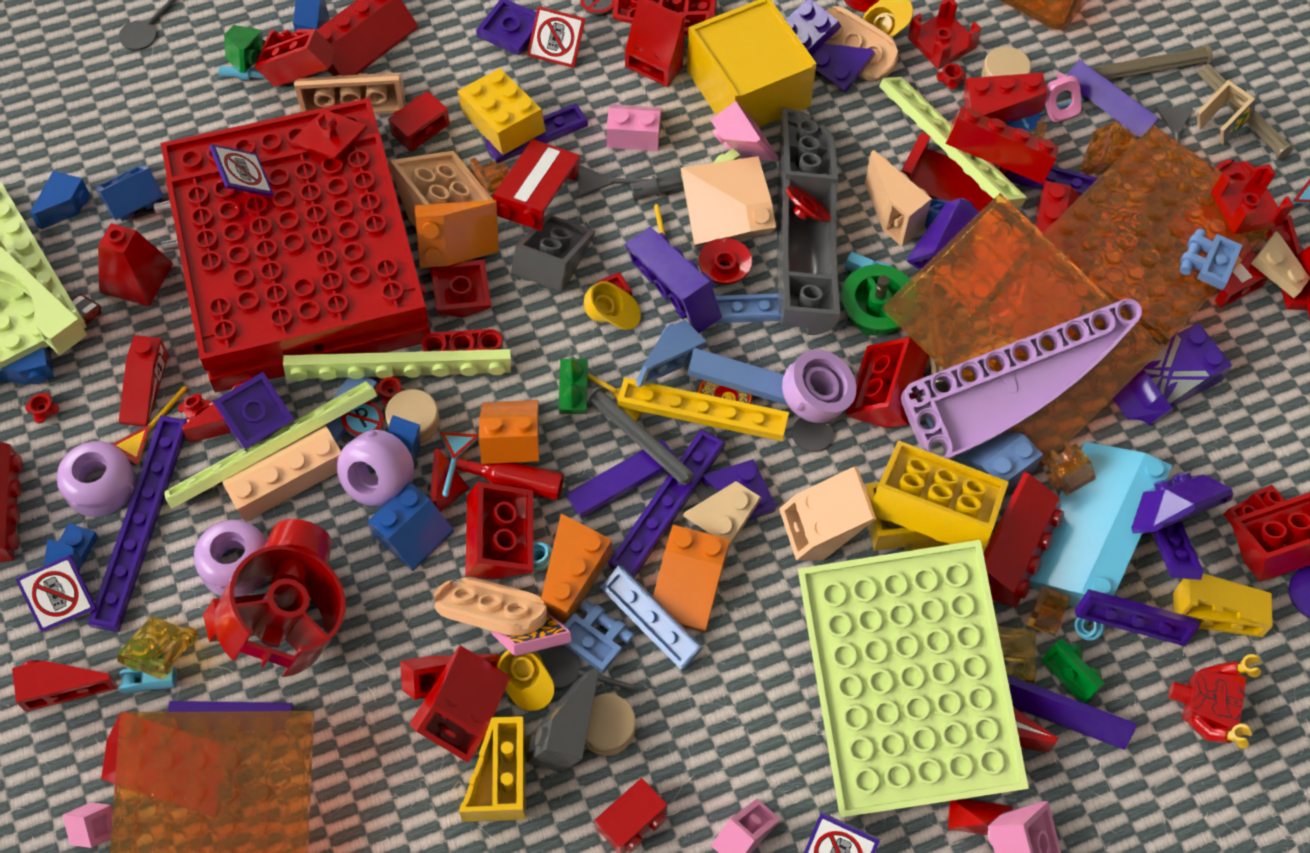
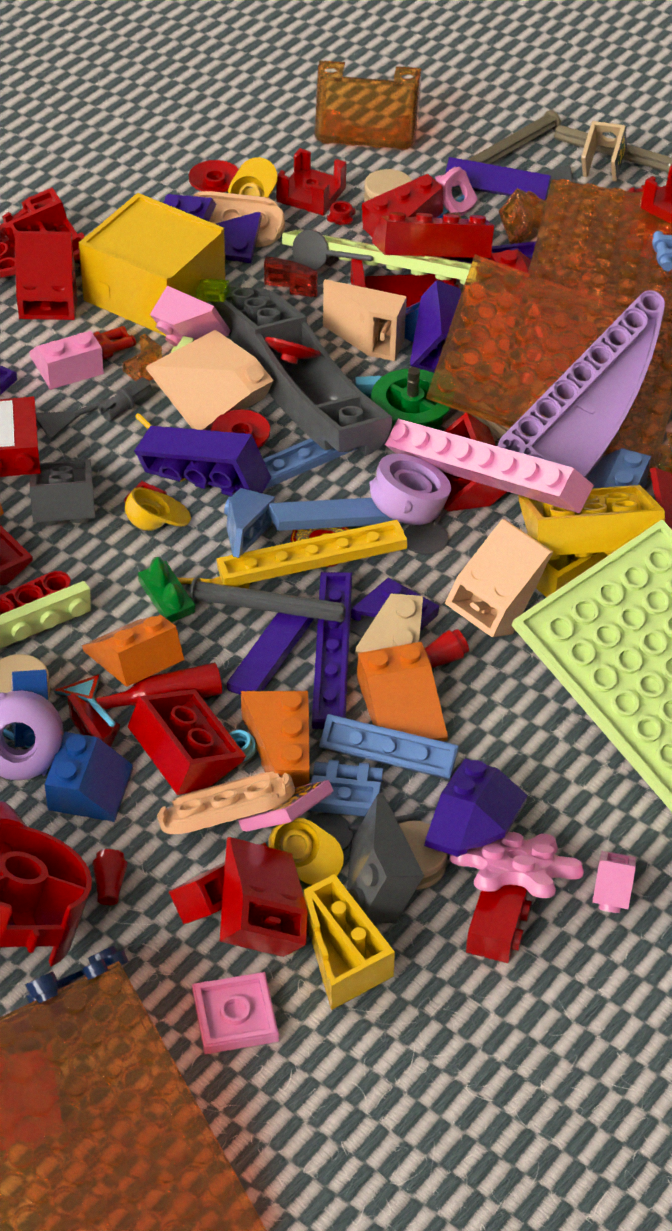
camera: 30 degrees left, 15 degrees down
(290, 699) = (48, 985): none -> dark blue plant
(375, 618) = (109, 874): none -> red cone
(393, 784) = (235, 1013): none -> bright pink tile
(669, 794) = (520, 863): none -> bright pink plate
(670, 123) = (108, 348): none -> red piece
(671, 714) = (474, 809): none -> dark purple wedge
(691, 155) = (136, 366): none -> clear orange panel
(752, 550) = (447, 648): none -> red cone
(782, 114) = (213, 290): none -> clear neon green tile
(869, 128) = (286, 273): none -> clear red slope
(885, 406) = (492, 465): none -> bright pink brick
(897, 107) = (312, 250): none -> dark grey piece

